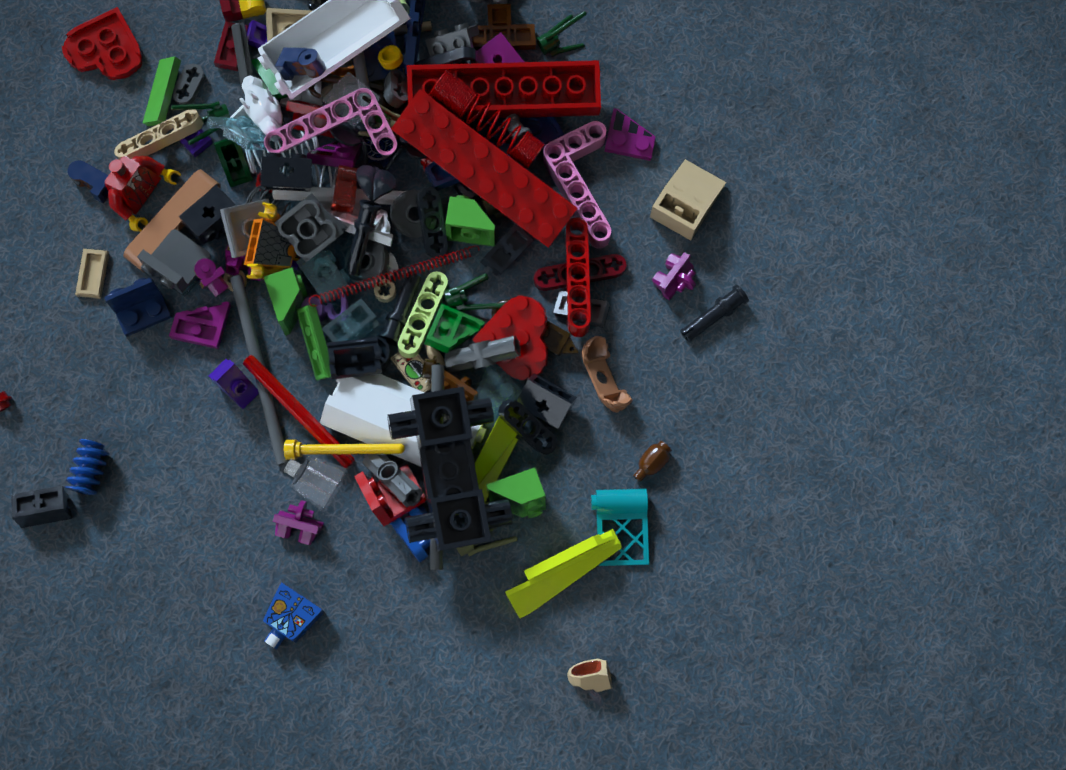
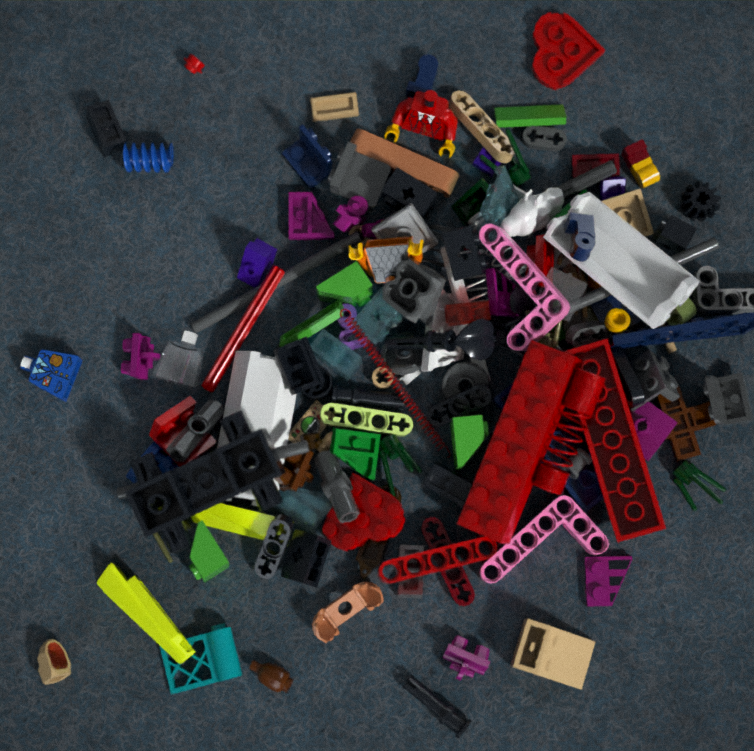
camera: 80 degrees right, 5 degrees up
(295, 449) = (206, 335): yellow piece -> none

